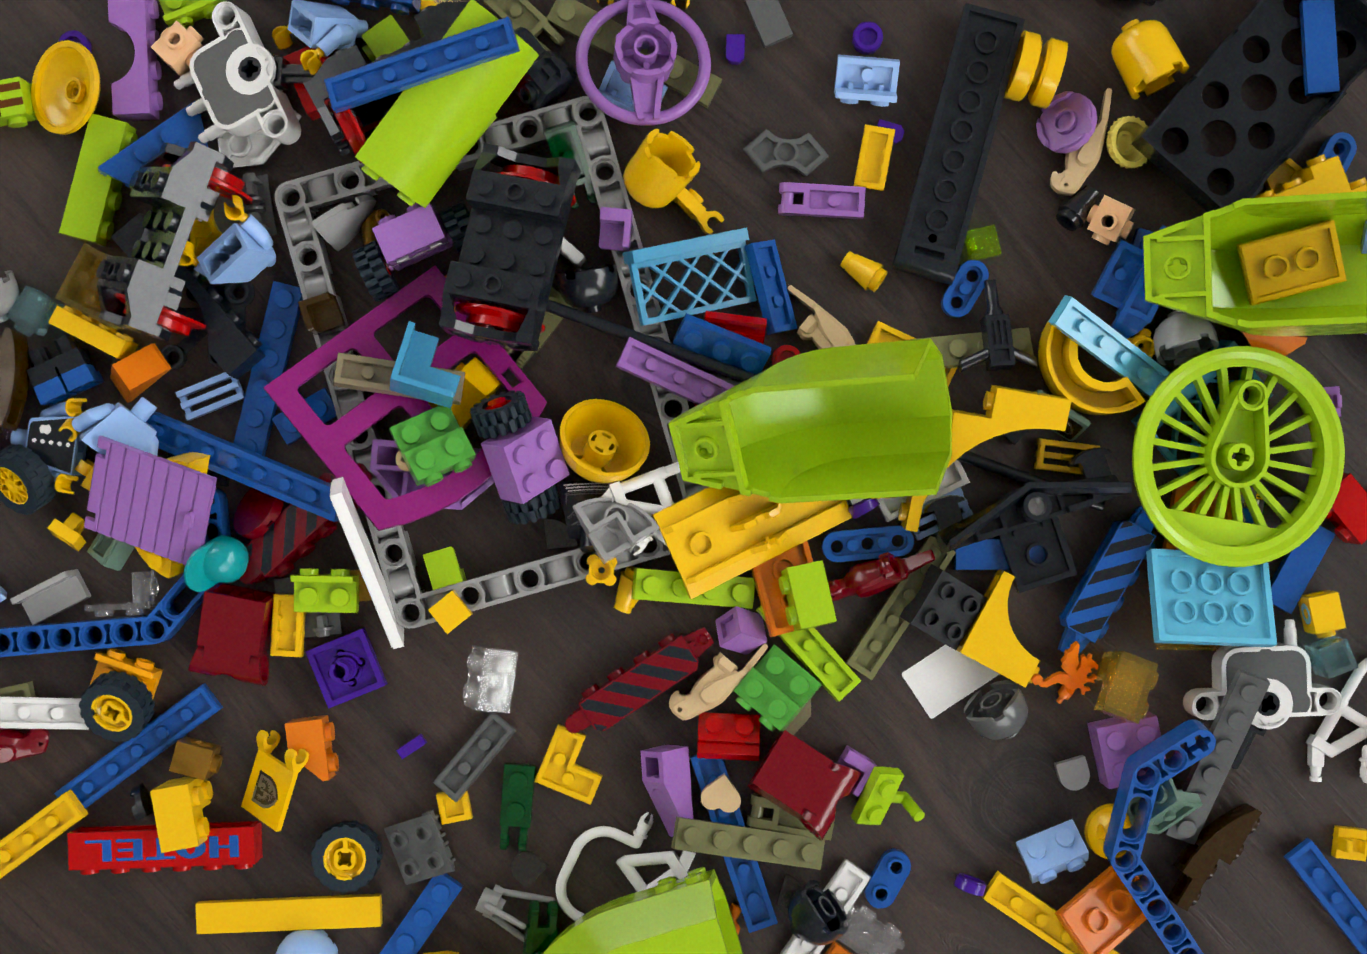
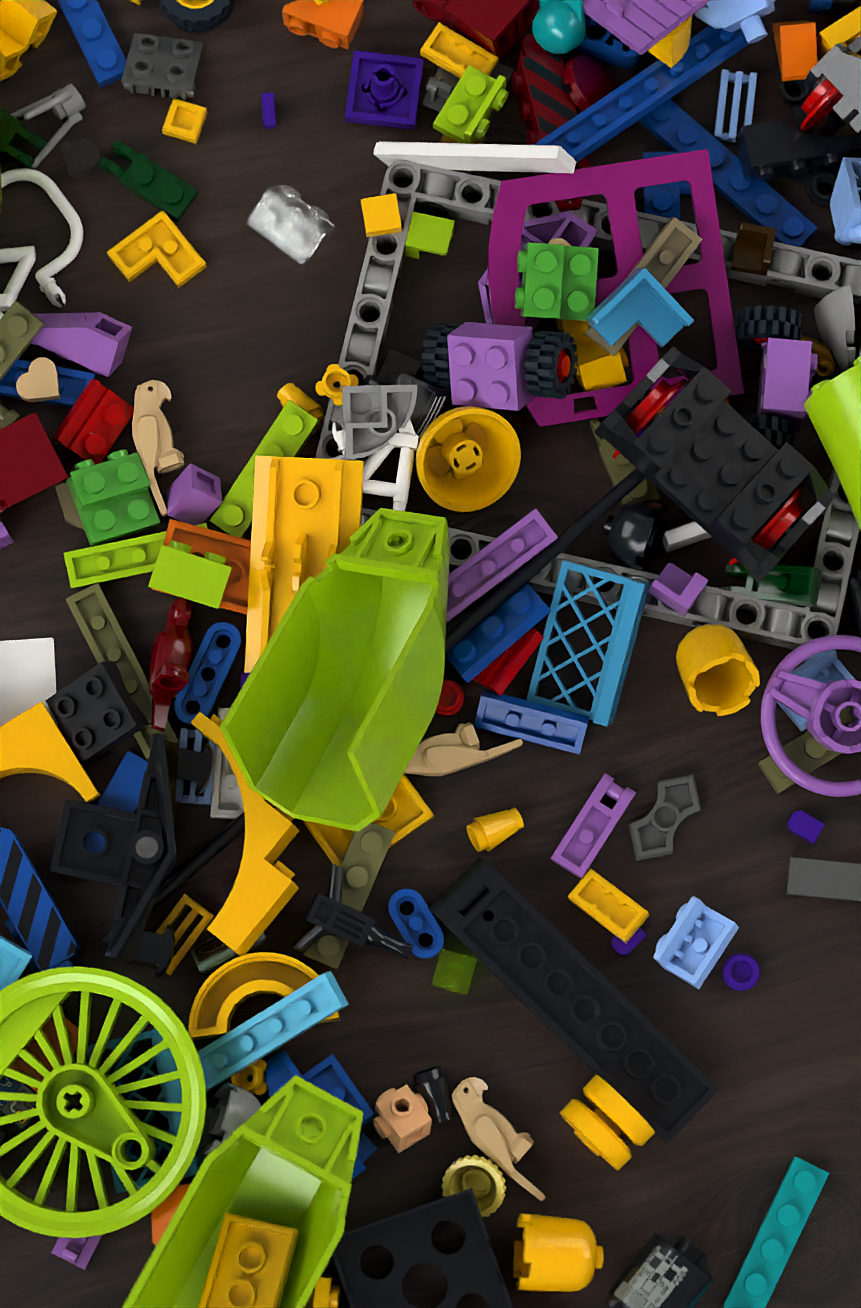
camera: 125 degrees right, 10 degrees down
(474, 756) = (222, 165): dark grey tile -> none
(639, 683) = (200, 366): dark red hinge -> none
(691, 204) = (665, 687): yellow plate -> none
(1067, 122) = (532, 1128): medium lavender tile -> none

